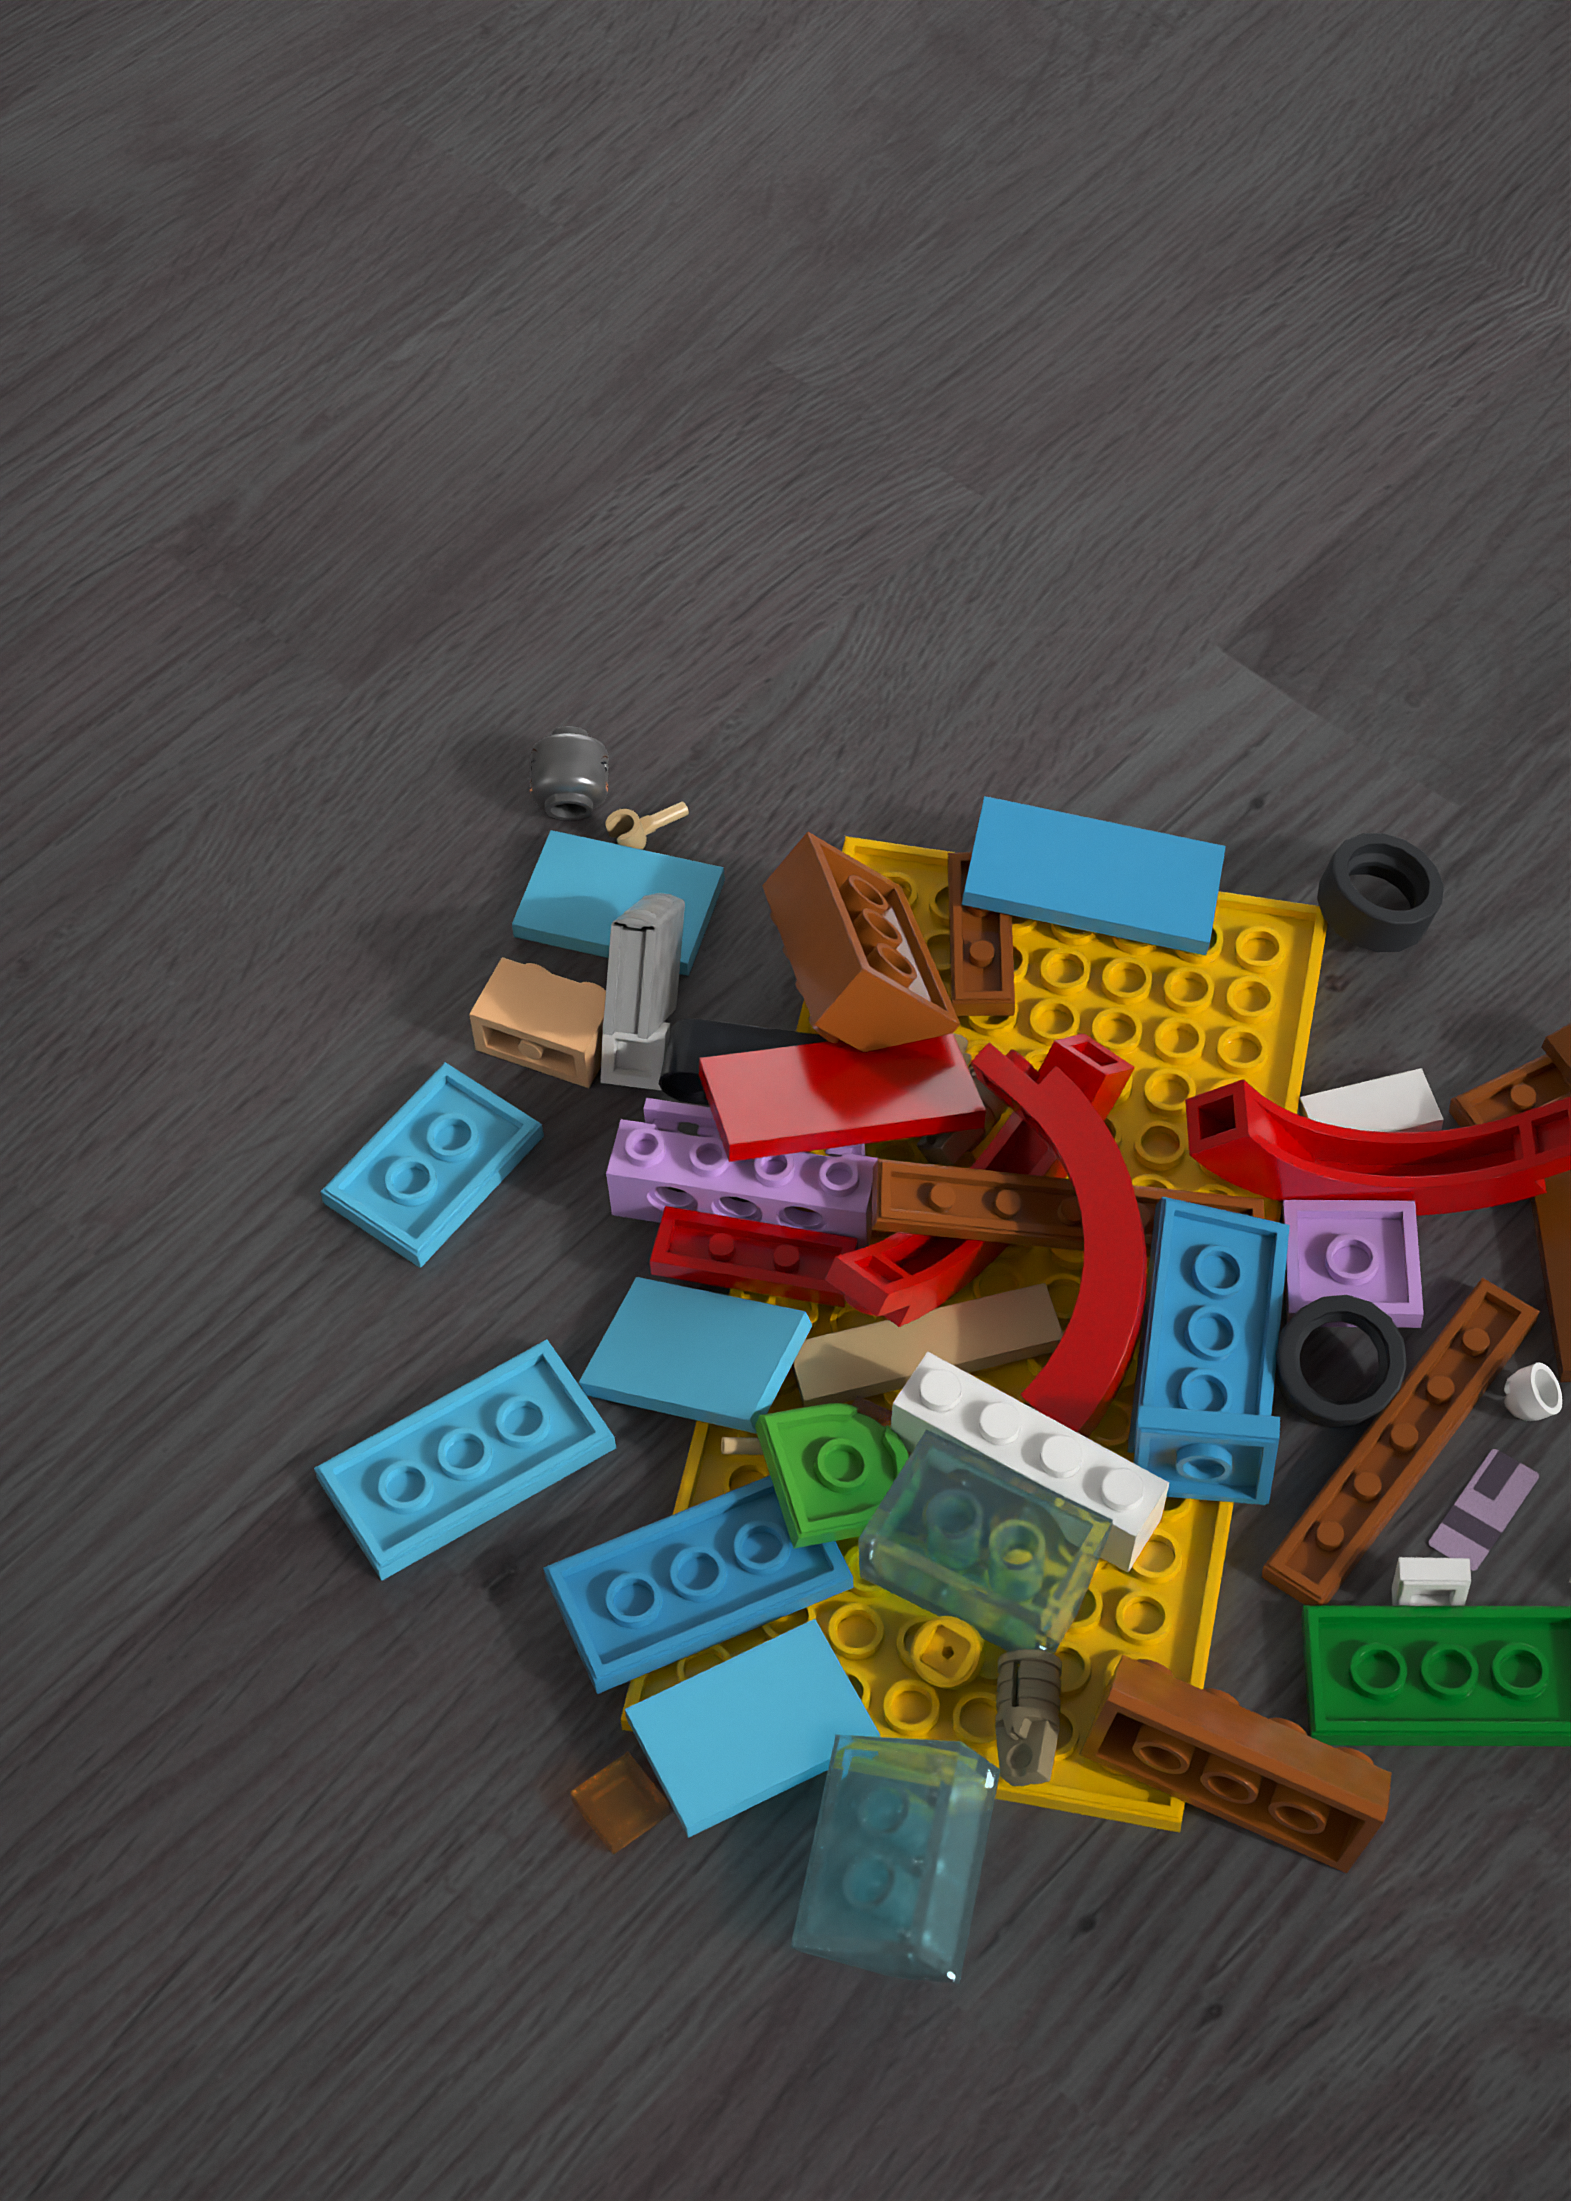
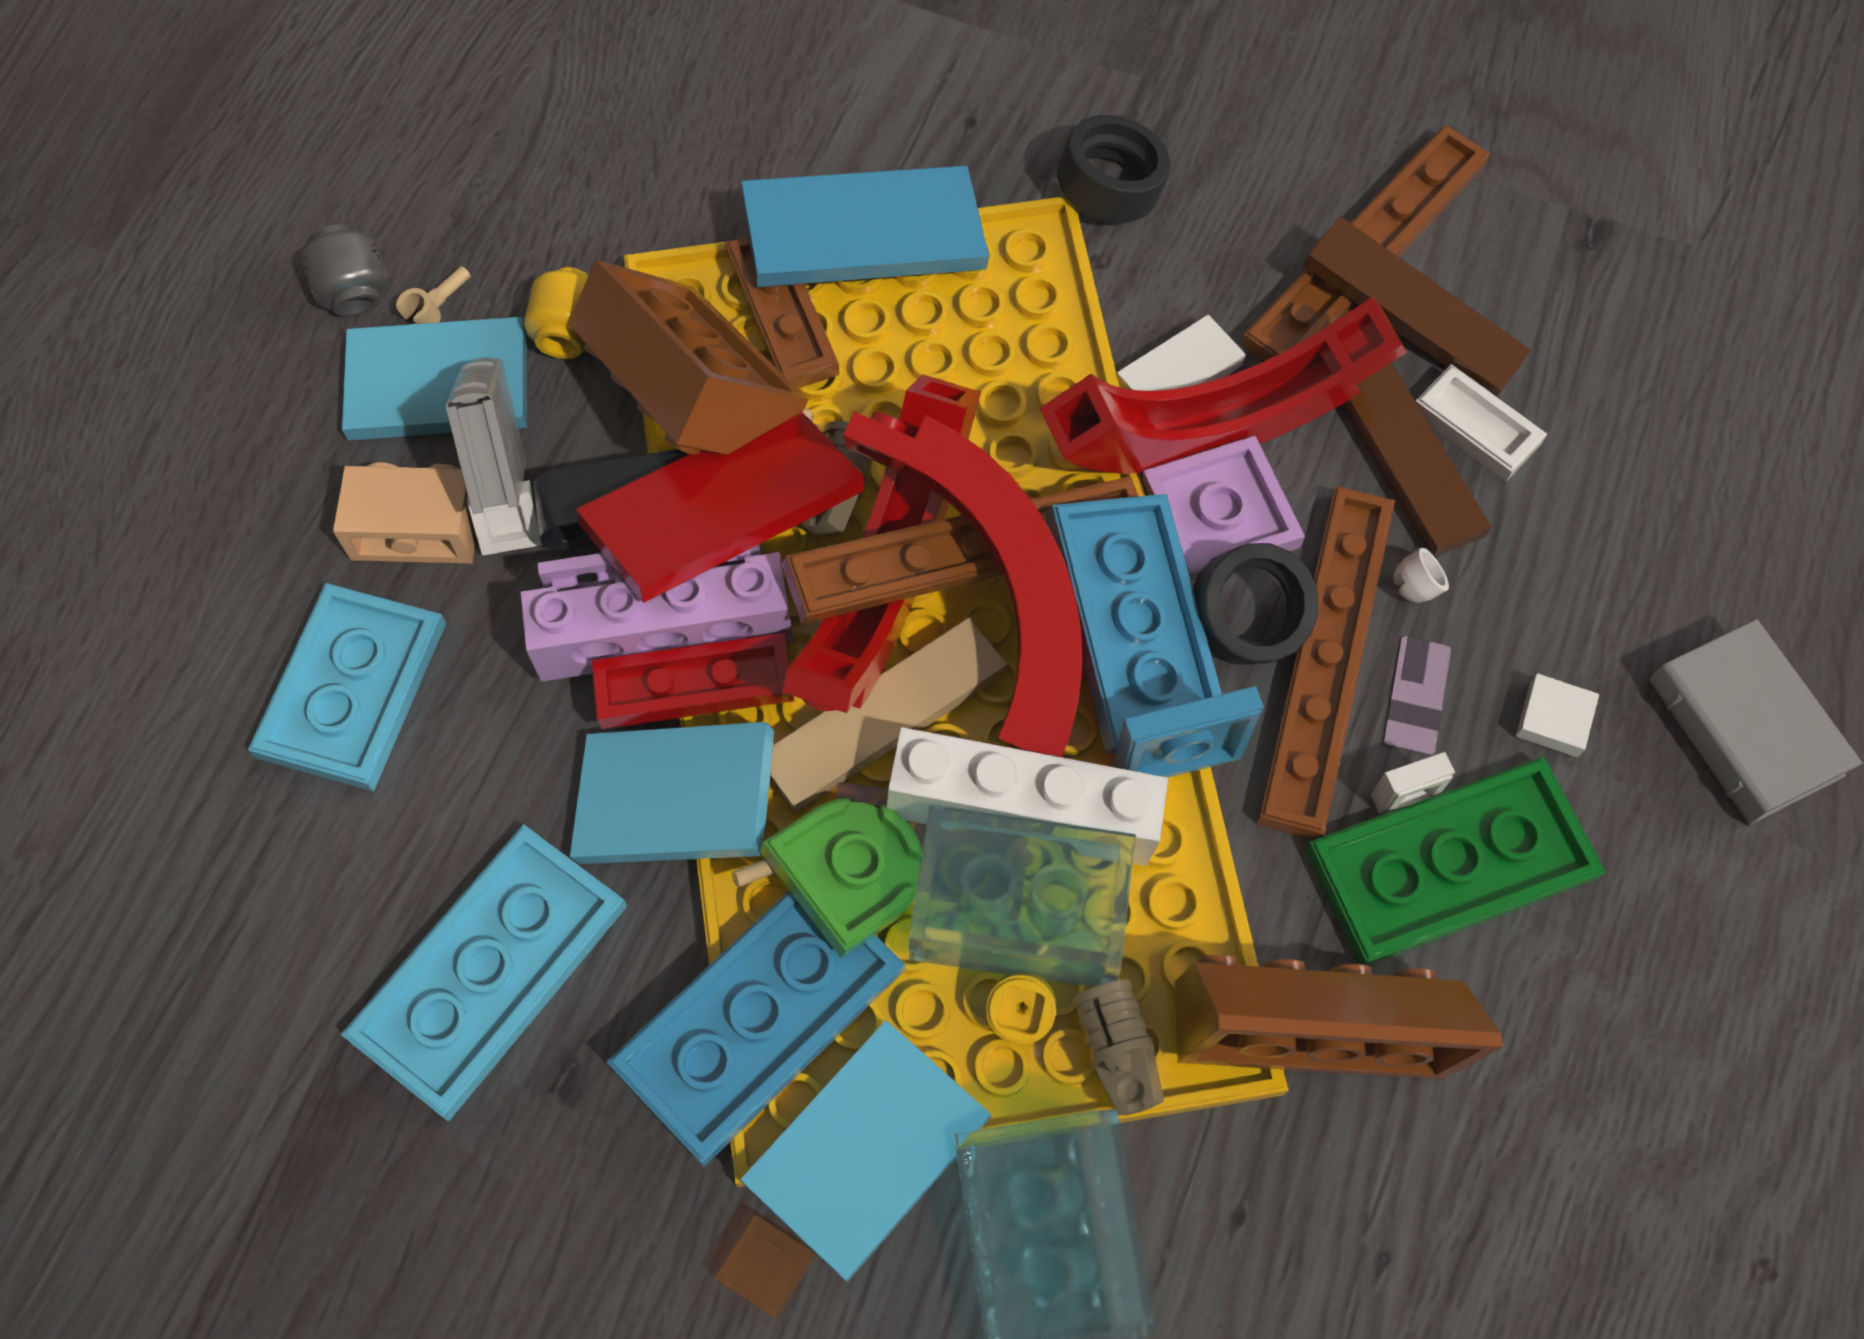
camera: 25 degrees left, 10 degrees up
(750, 868) = (550, 310): none -> yellow head

